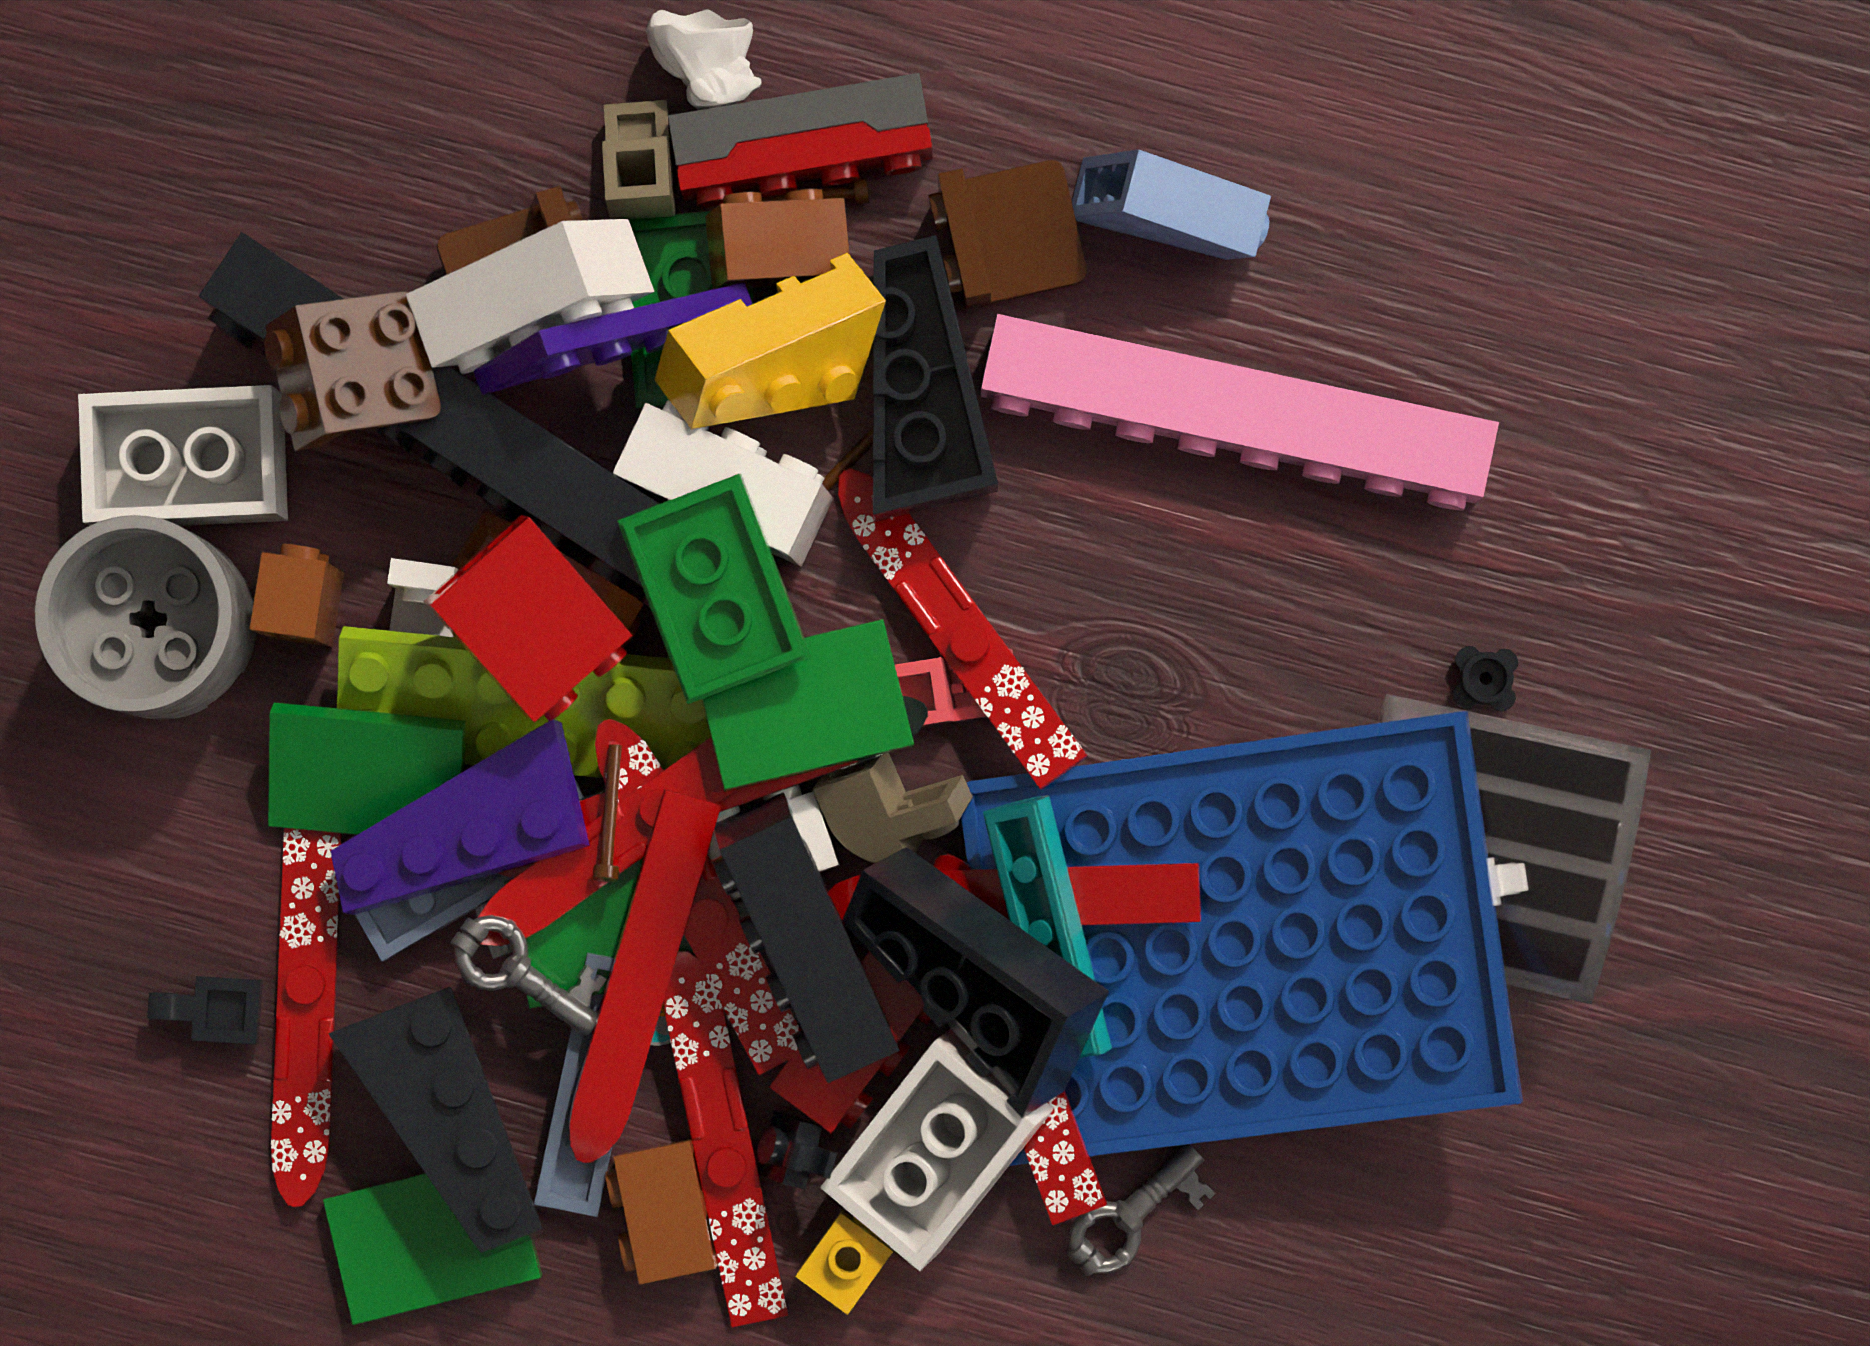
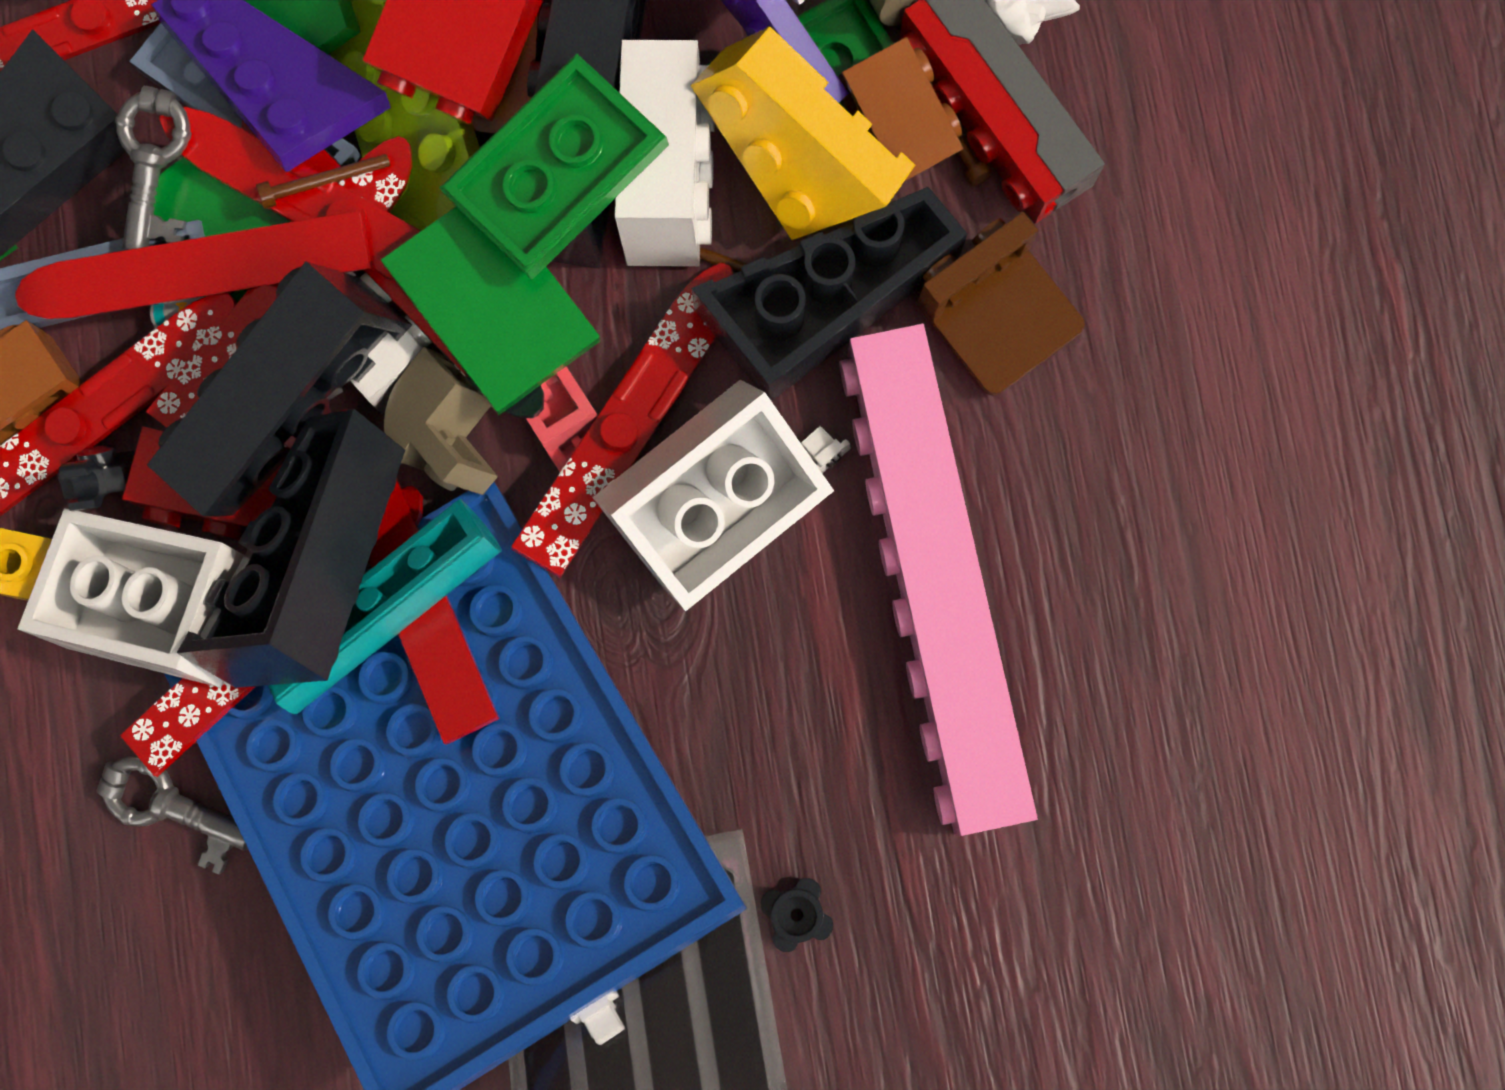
camera: 65 degrees right, 5 degrees down
(1065, 460) = (824, 449): none -> white piece
(1073, 580) = (714, 493): none -> white brick
(1170, 204) = (1095, 438): medium blue slope -> none

